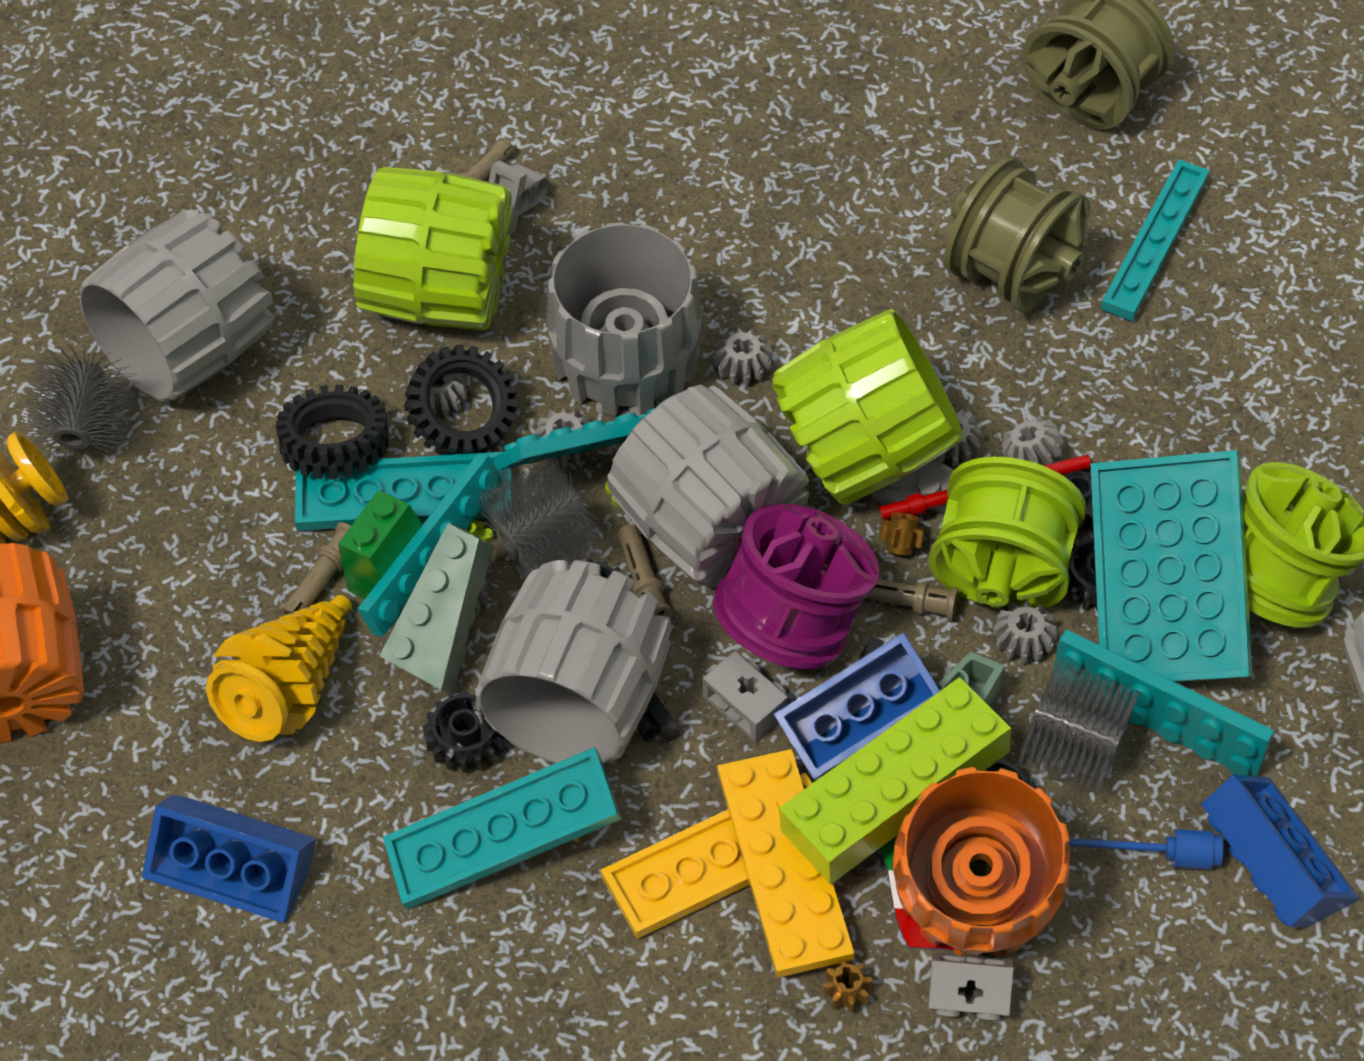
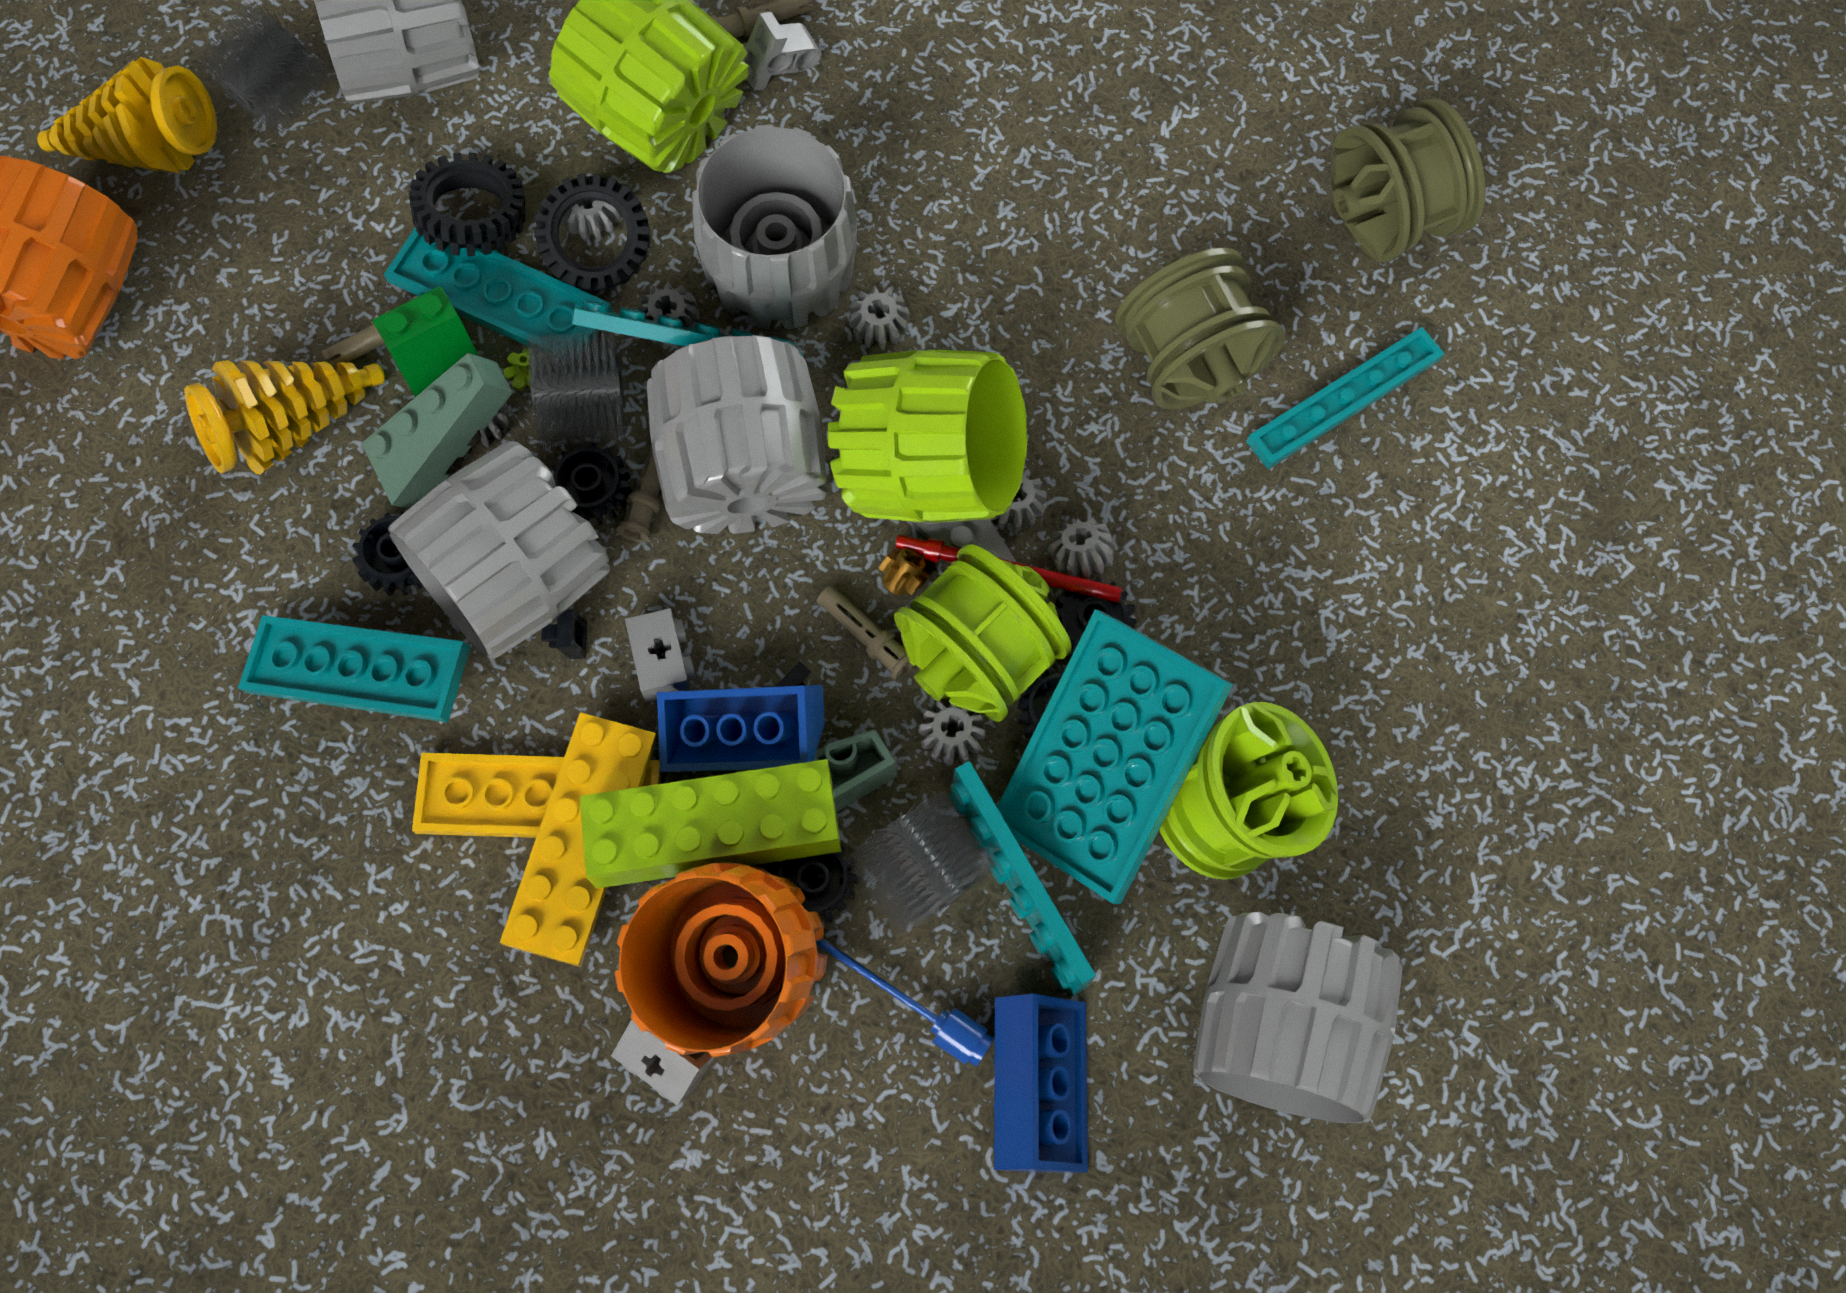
camera: 25 degrees right, 15 degrees up
(227, 857) = (125, 560): blue slope -> none
(458, 508) = (499, 344): teal plate -> none
(795, 586) = (787, 571): magenta wheel -> none
(847, 997) = (557, 977): pearl gold gear -> none

